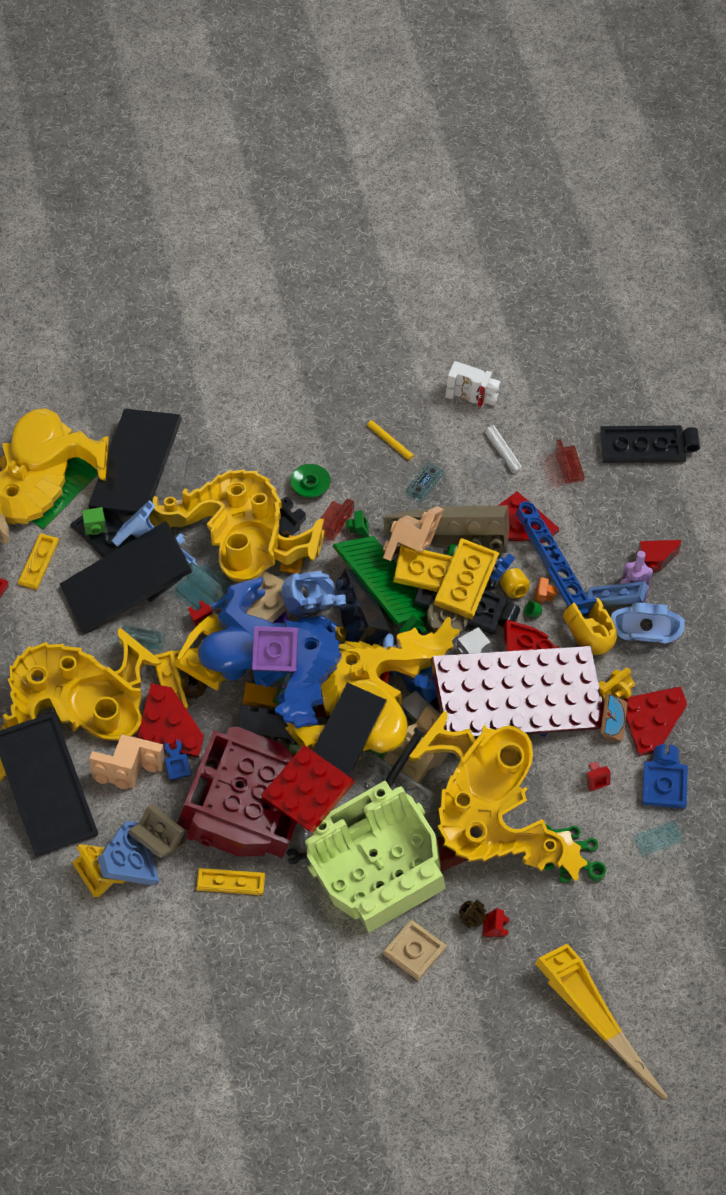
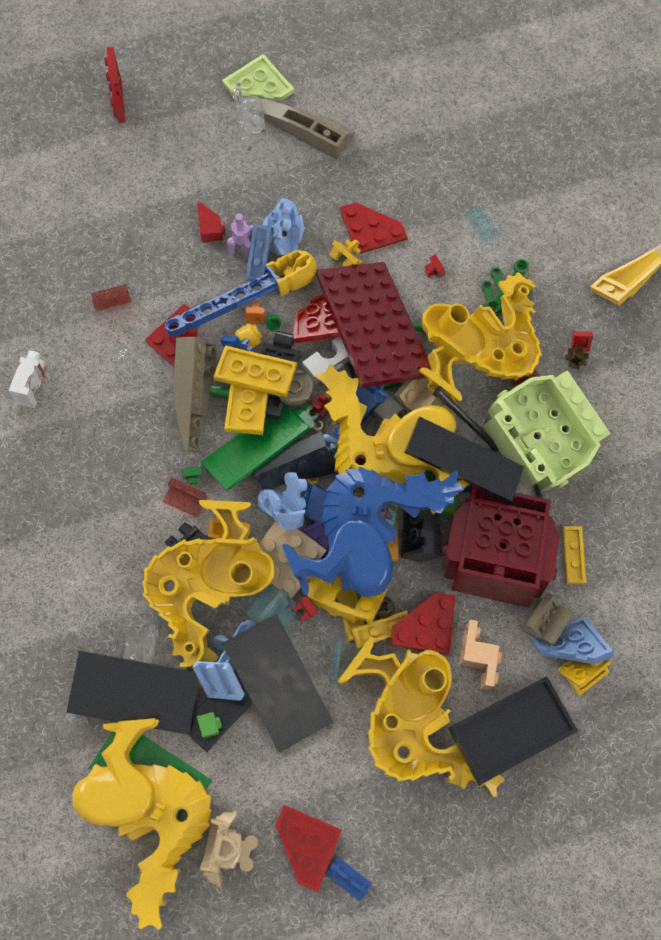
camera: 95 degrees left, 15 degrees up
(38, 561) = (252, 778): yellow tile -> none
(177, 764) = (466, 612): blue plate -> none
(275, 649) = (377, 517): medium lavender plate -> none
(308, 789) = (509, 481): red plate -> none
(310, 473) = (140, 513): green dish -> none
(390, 440) = (87, 456): yellow bar -> none
(413, 532) = (212, 416): light nougat bracket -> none
(414, 950) = (614, 400): tan plate -> none
(425, 481) = (136, 419): clear light blue tile -> none
(503, 449) = (96, 353): white axle -> none
(613, 718) = (379, 255): slope -> none
(647, 443) = (87, 234): black hinge -> none
(665, 779) = (430, 217): blue plate -> none

